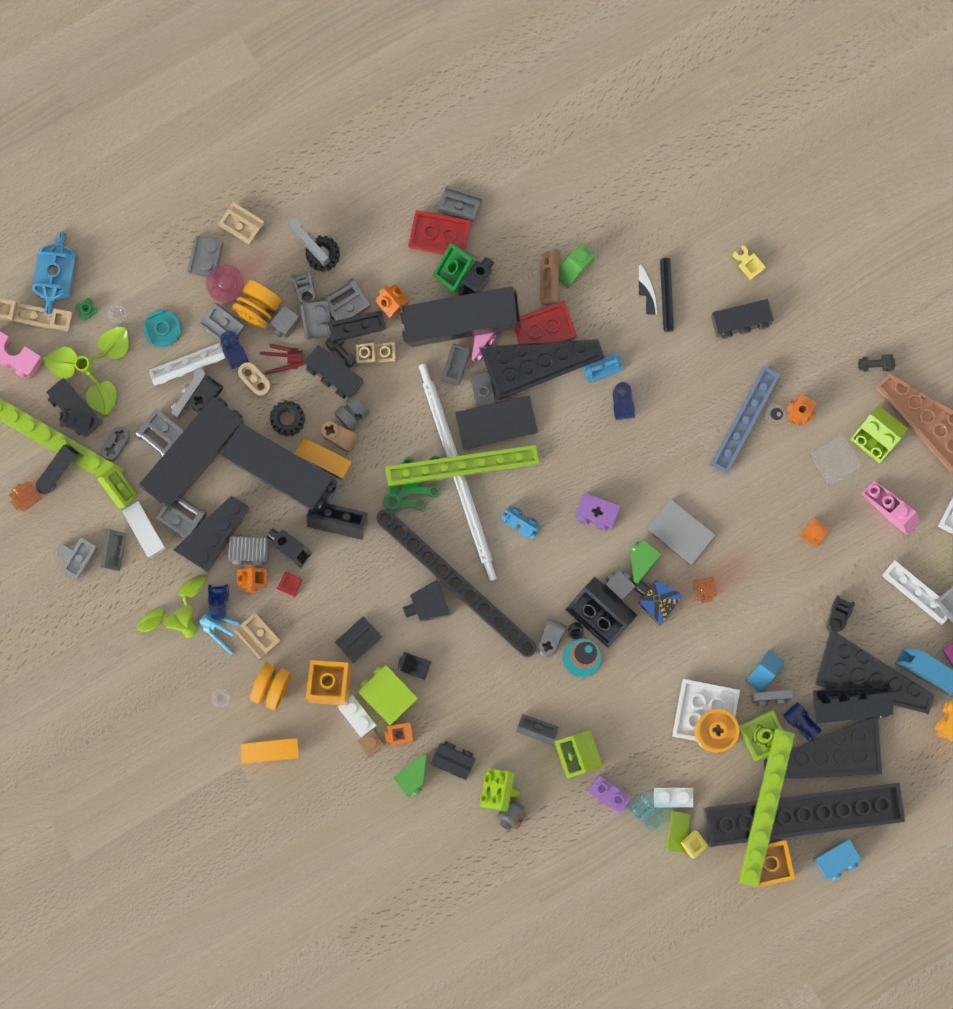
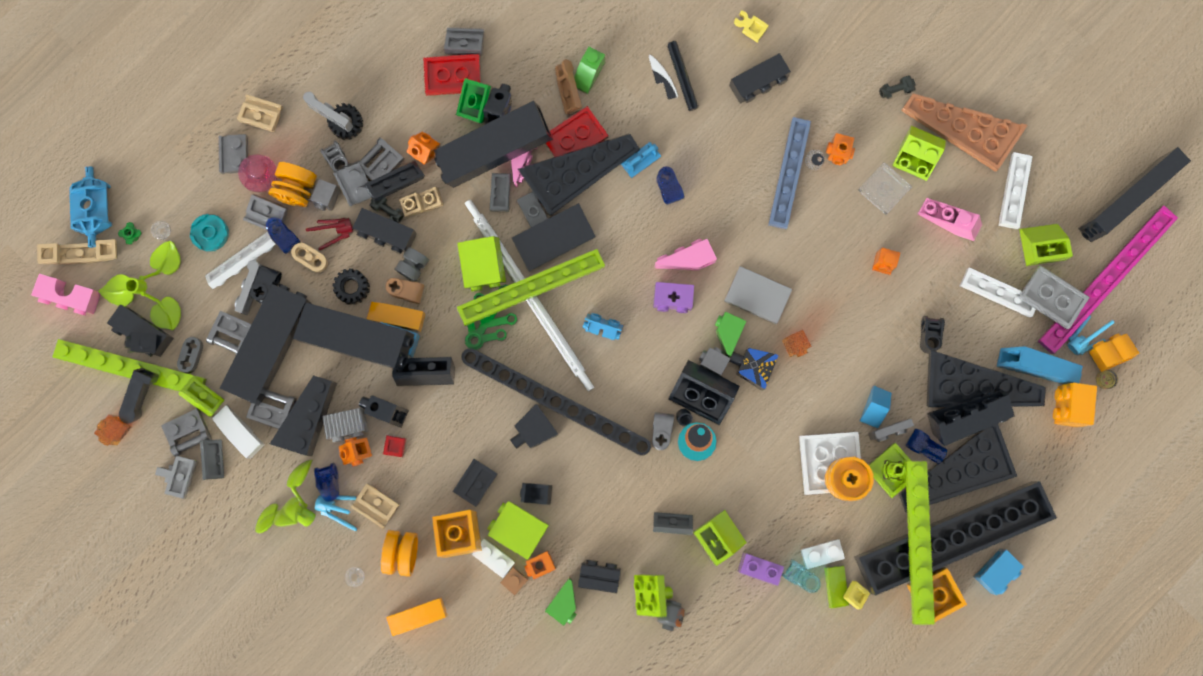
camera: 15 degrees left, 0 degrees up
(93, 511) = (183, 427): none -> flat silver plate
(420, 430) = (481, 263): none -> lime brick
(627, 478) = (691, 258): none -> bright pink slope

